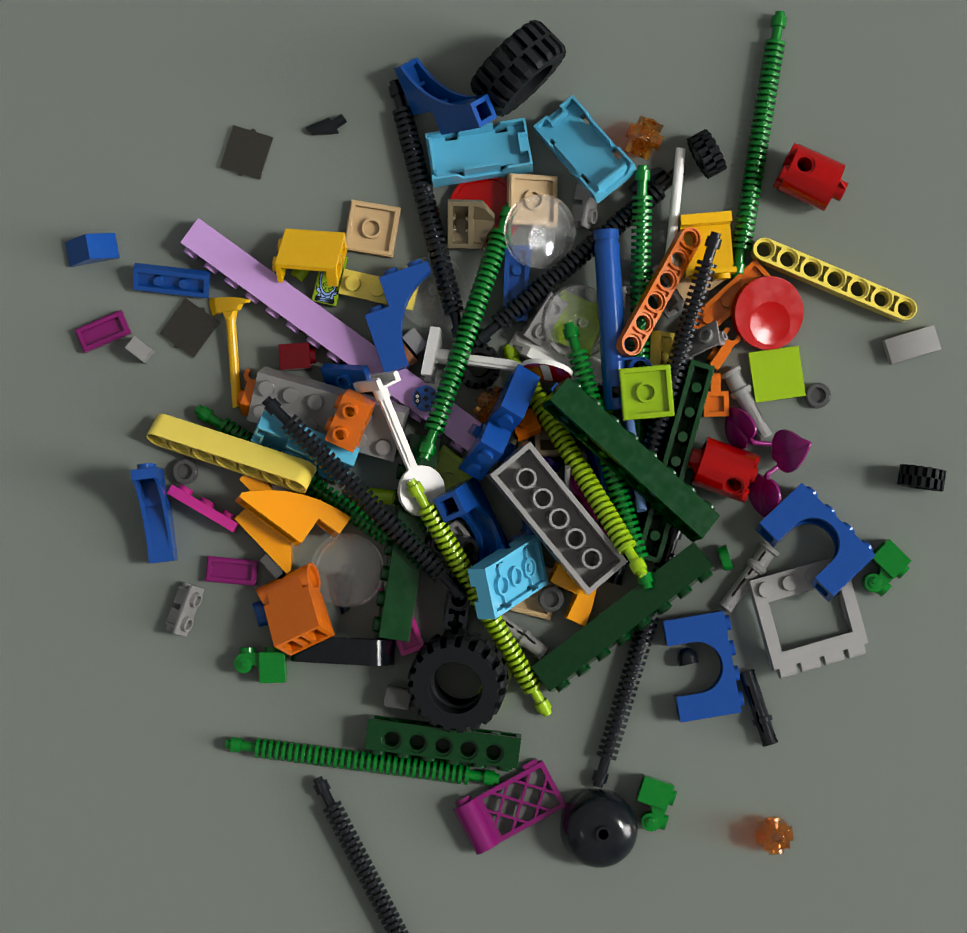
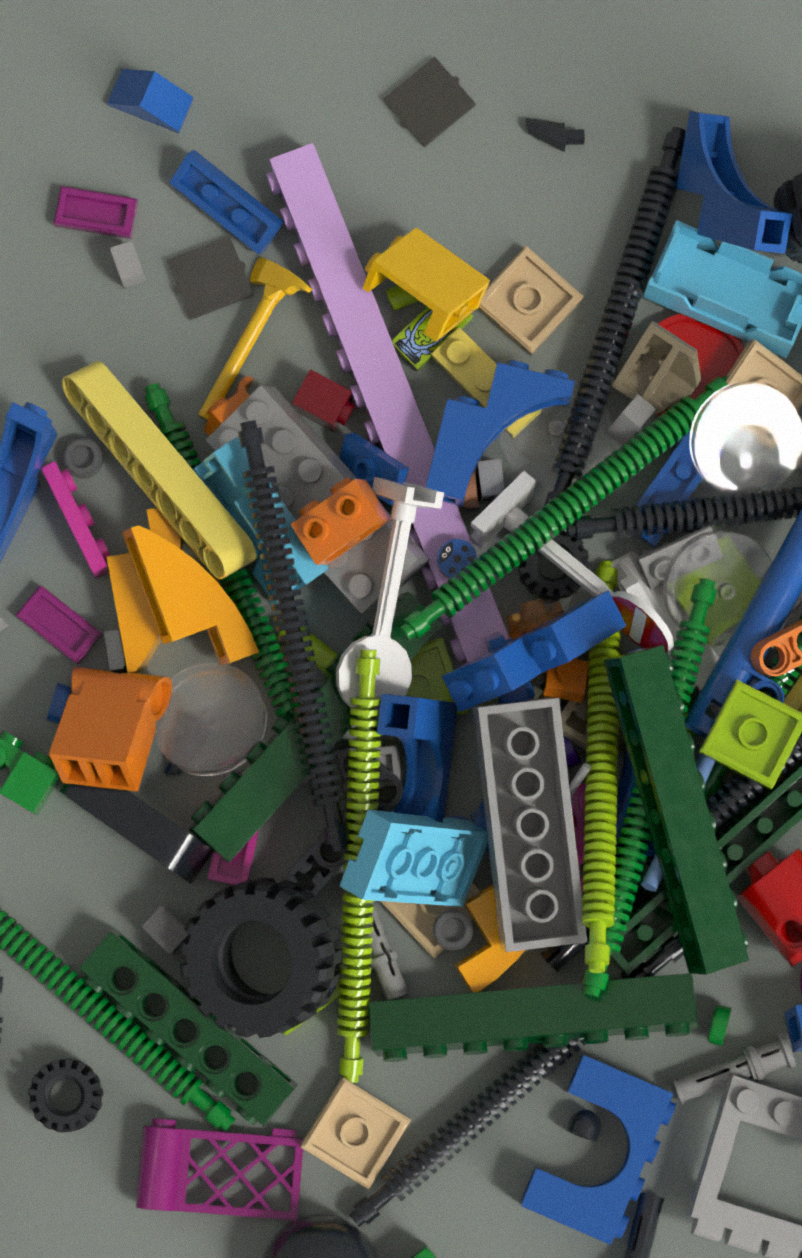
camera: 30 degrees right, 5 degrees down
(390, 831) = (90, 1095): none -> black tyre
(470, 260) = (630, 420): none -> light grey piece
(567, 740) = (355, 1132): none -> tan tile

